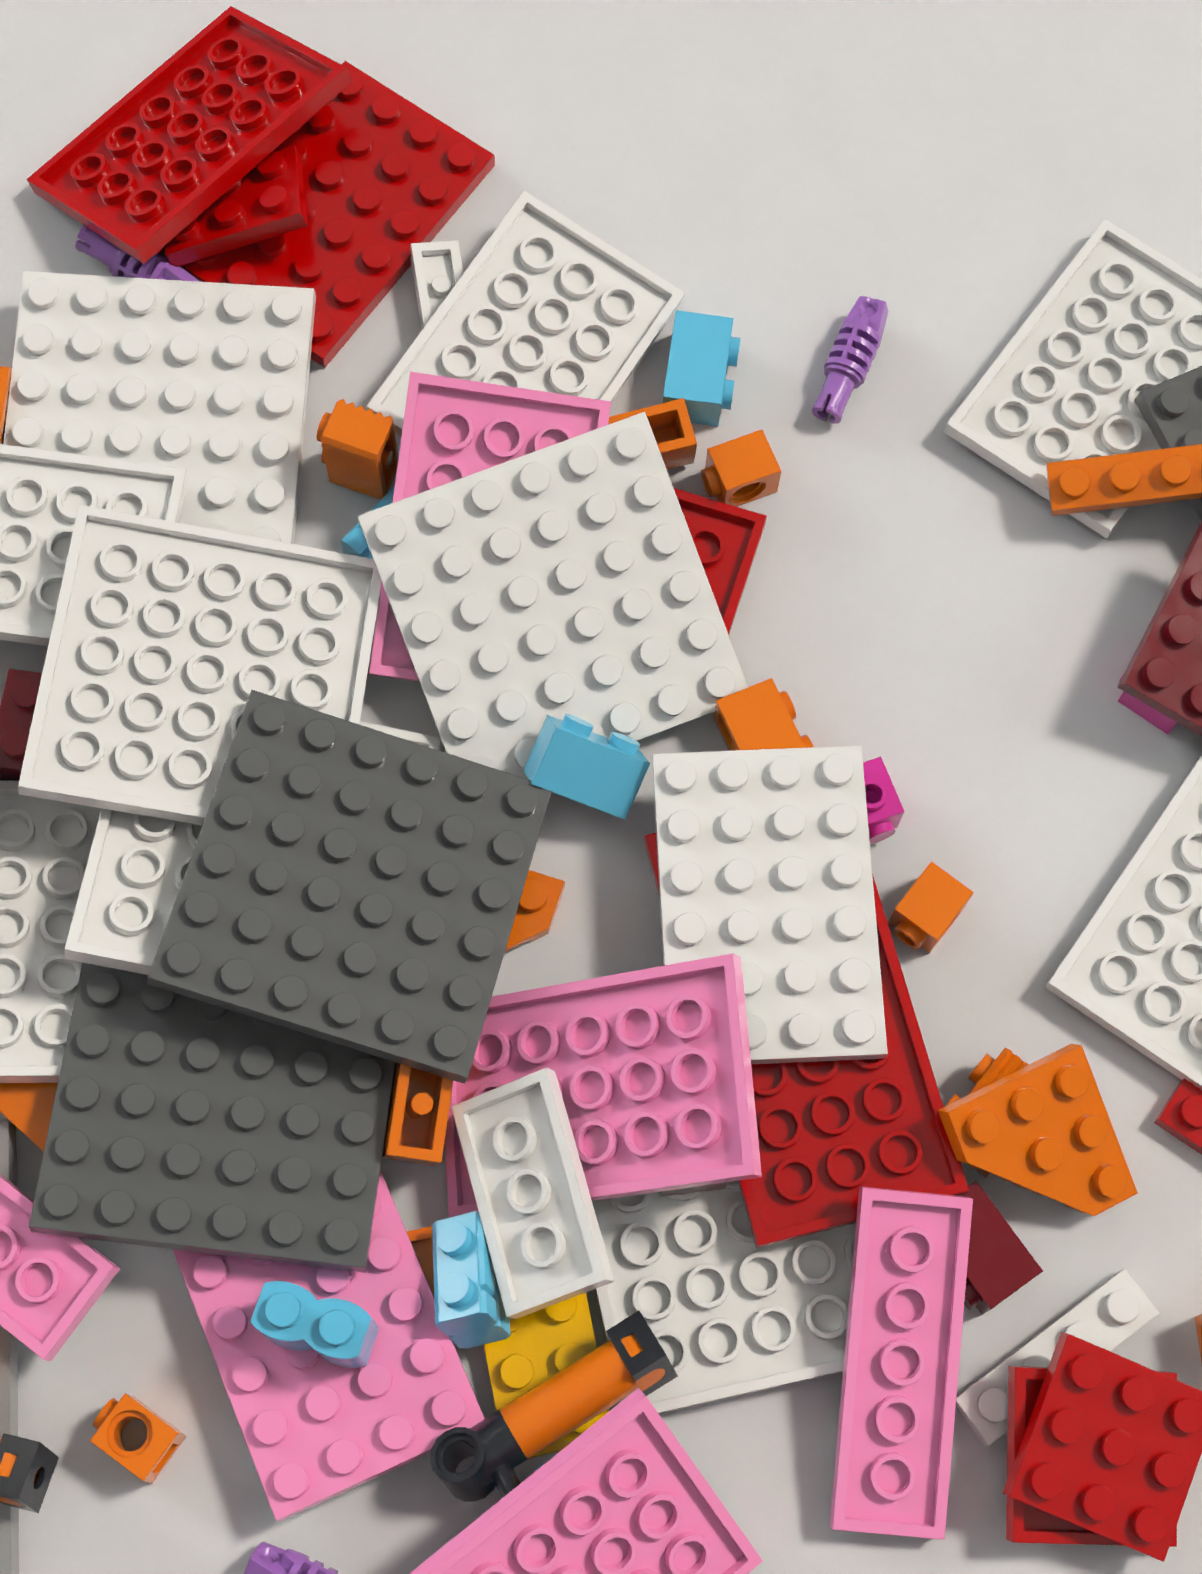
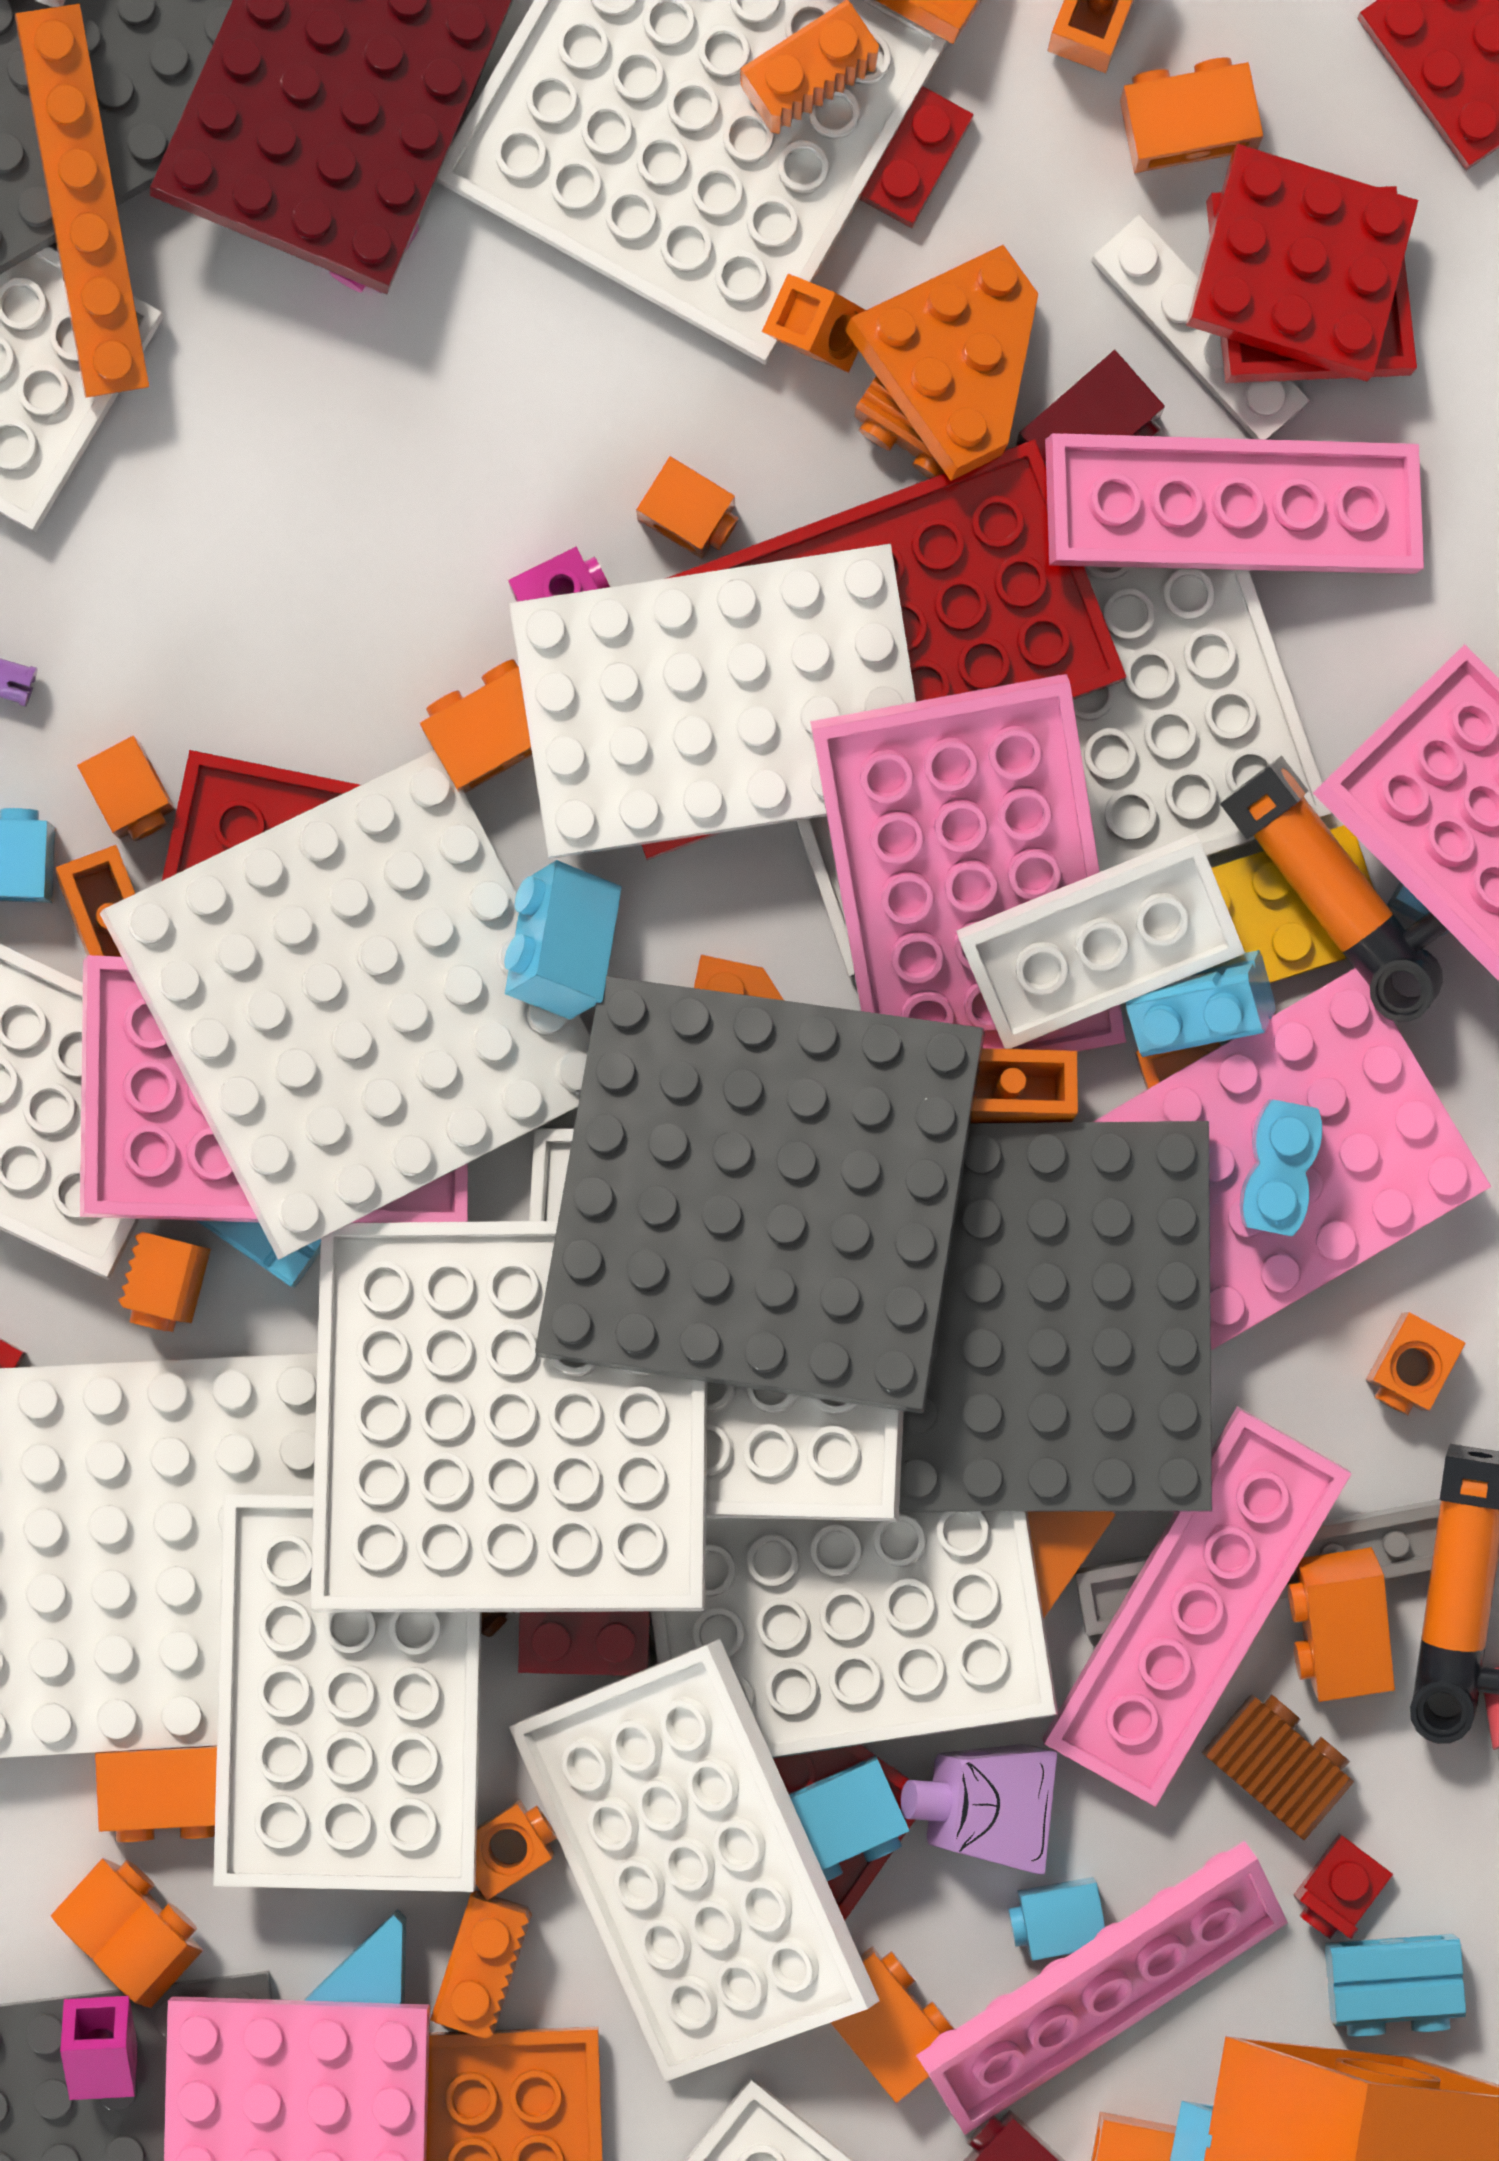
camera: 95 degrees left, 15 degrees up
(1078, 1018) = (813, 322): none -> orange brick

